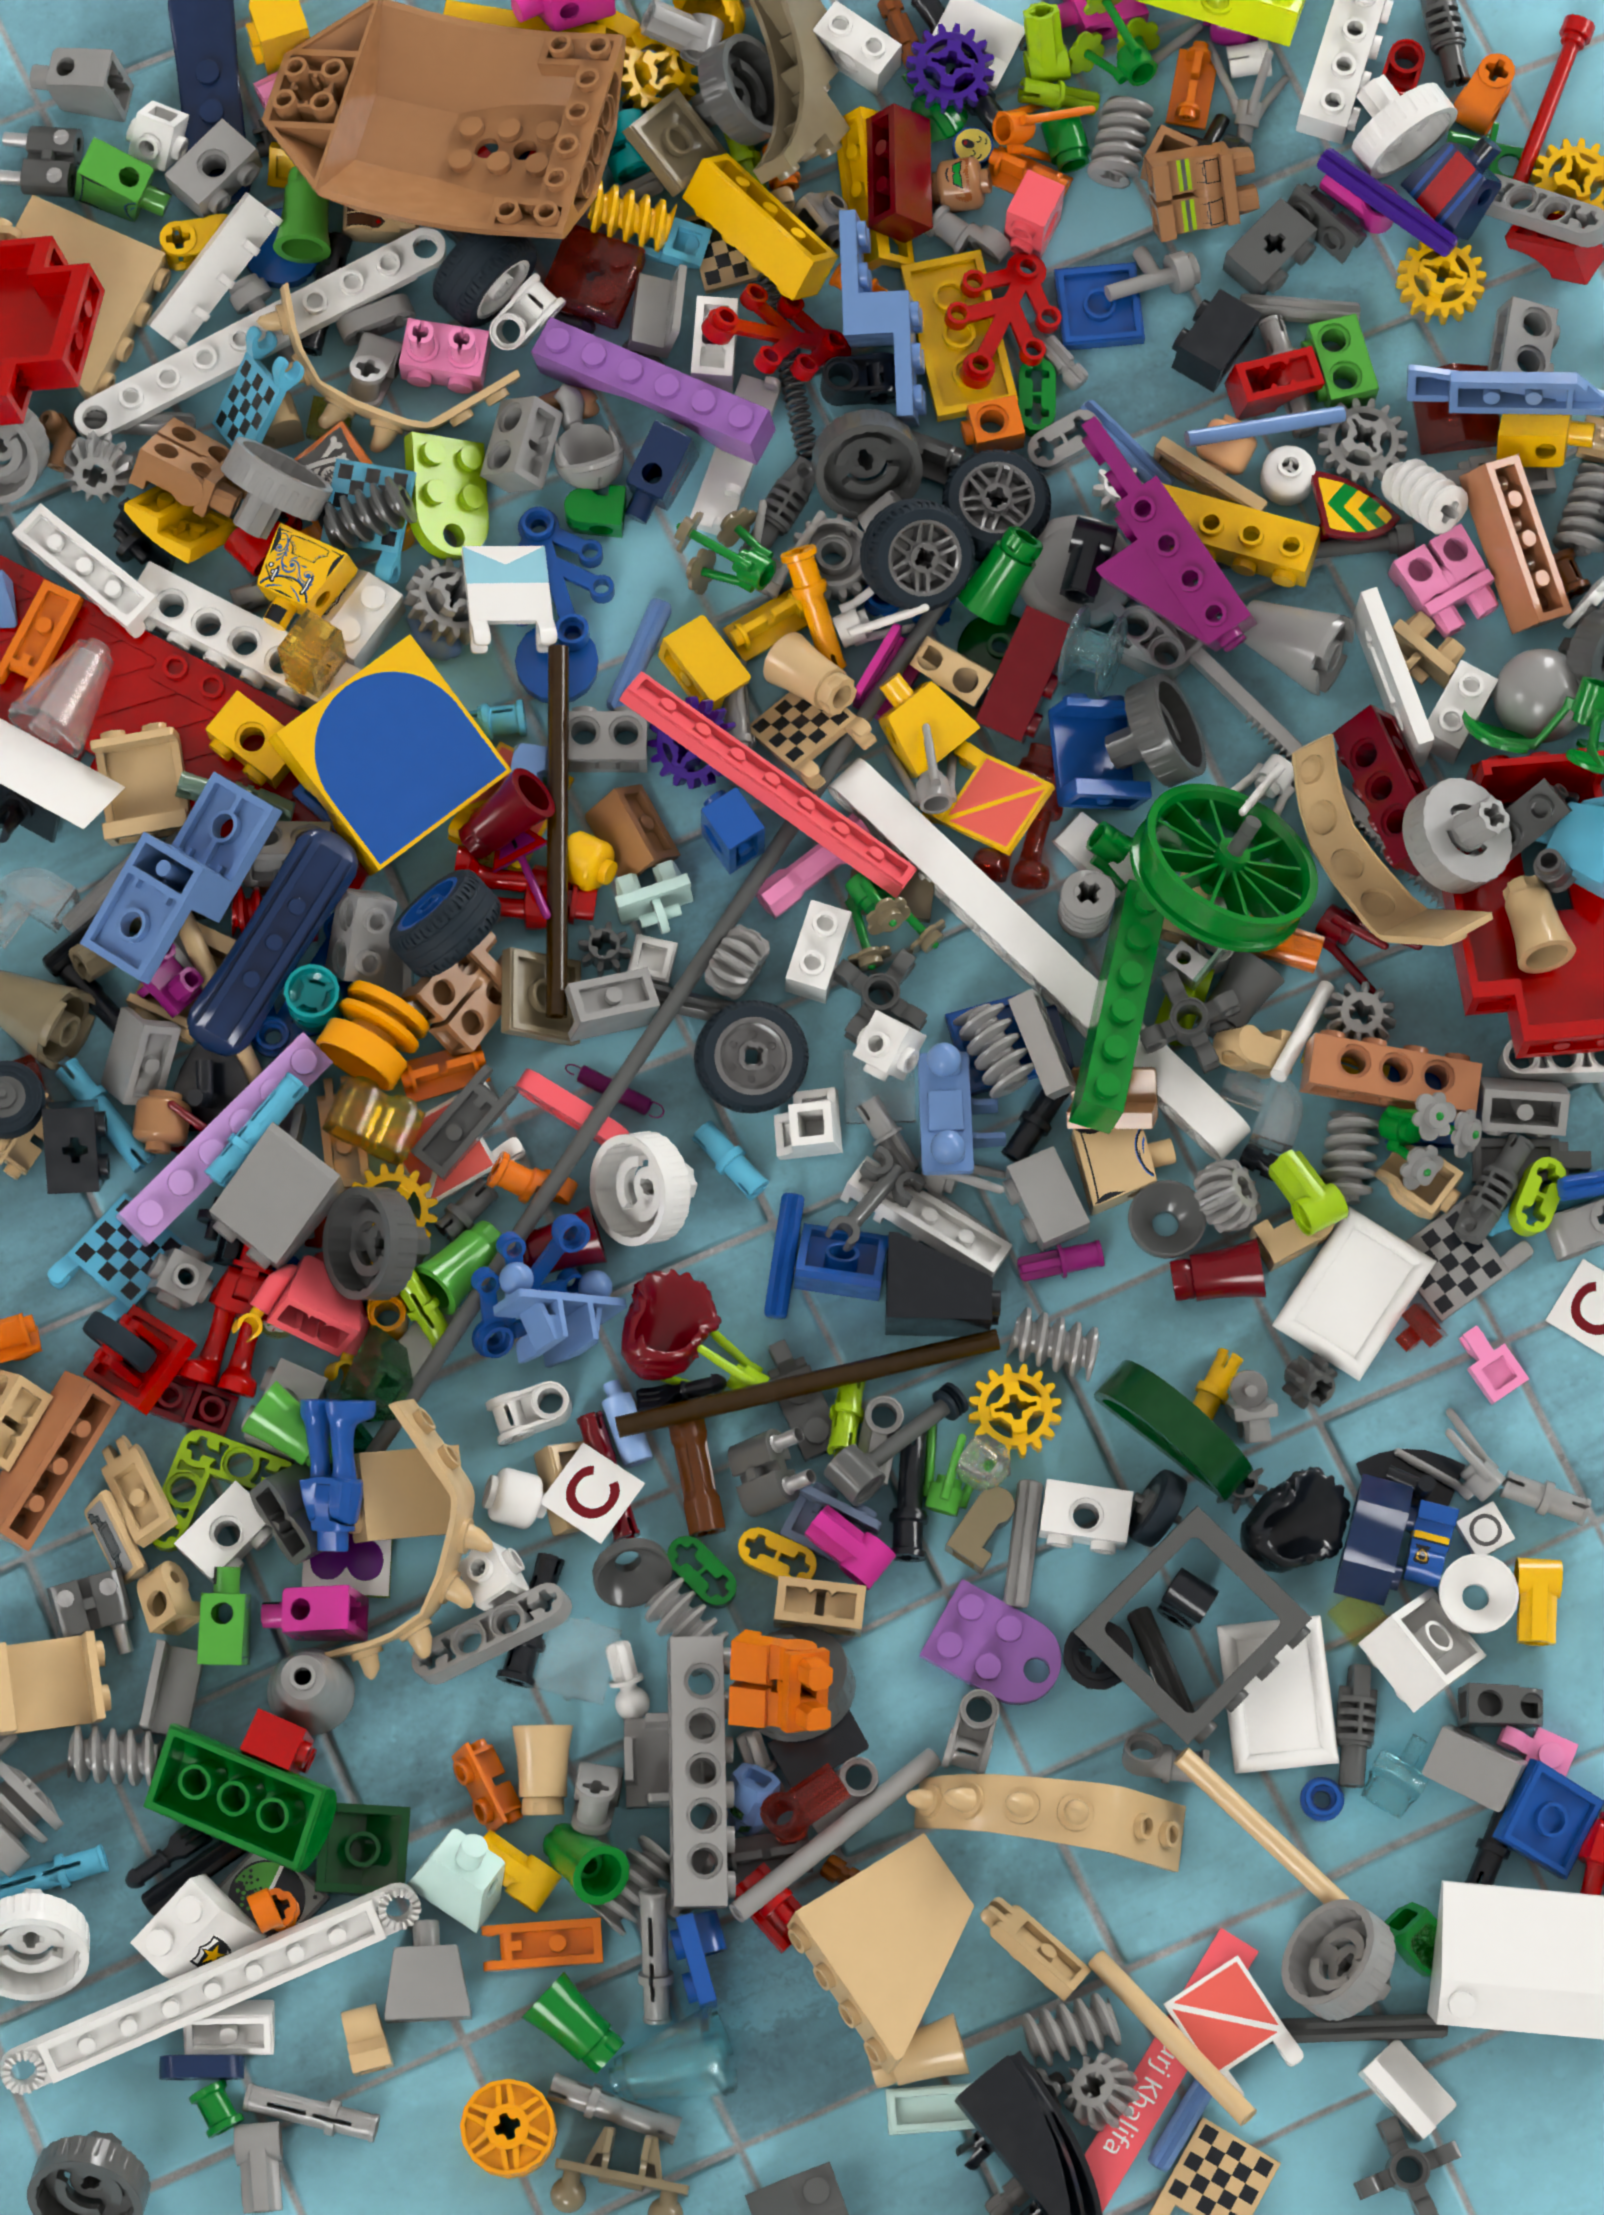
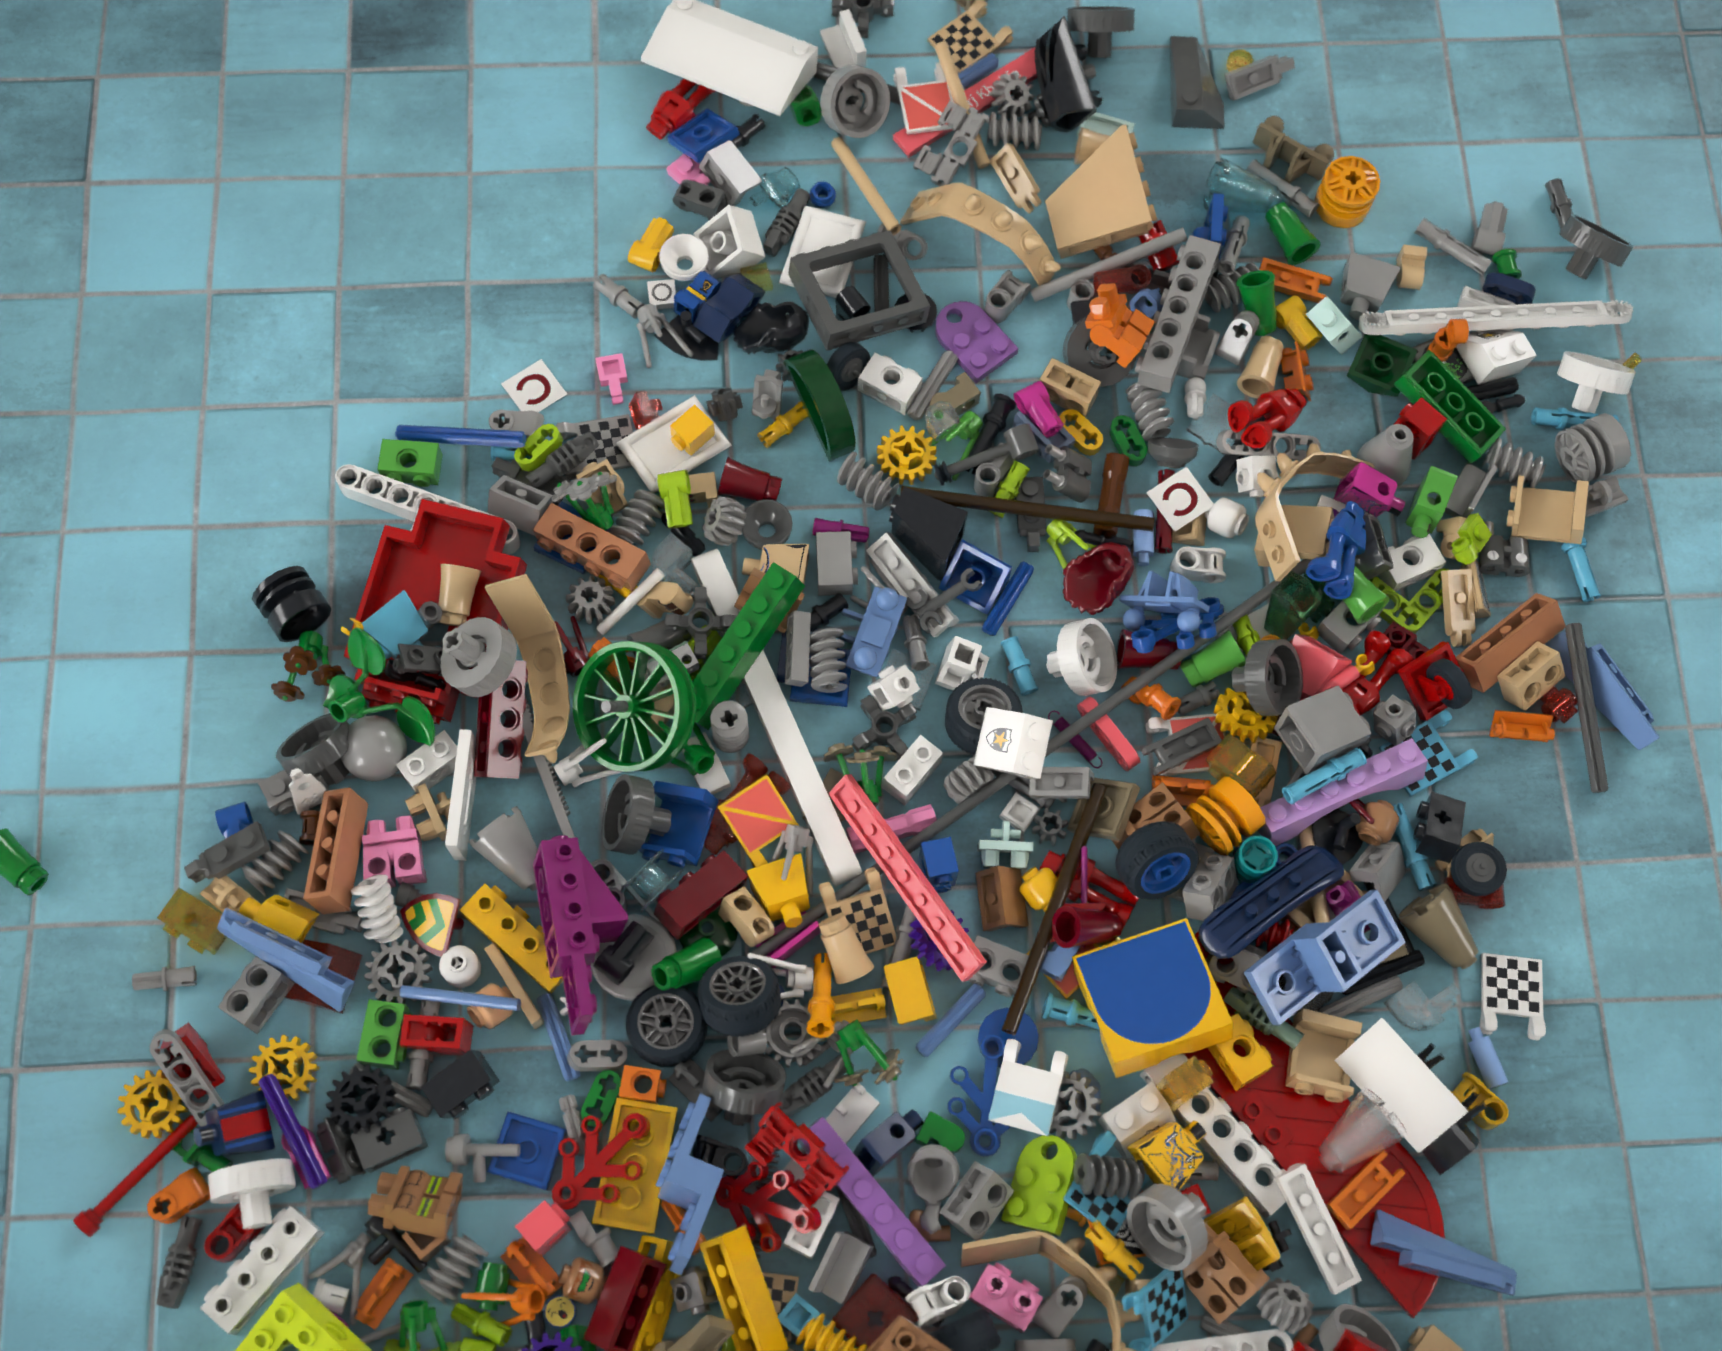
camera: 160 degrees left, 5 degrees down
(146, 1596) = (1472, 539): none -> lime plate
(332, 439) = (1114, 1250): none -> yellow pin
(497, 1694) = (1279, 408): none -> red piece
(694, 1007) = (1013, 743): none -> white slope
(726, 378) = (822, 1166): none -> red piece
(1143, 1983) = (962, 123): none -> light grey piece
(1333, 1305) = (692, 430): none -> yellow brick
(1336, 287) = (357, 1097): none -> black gear

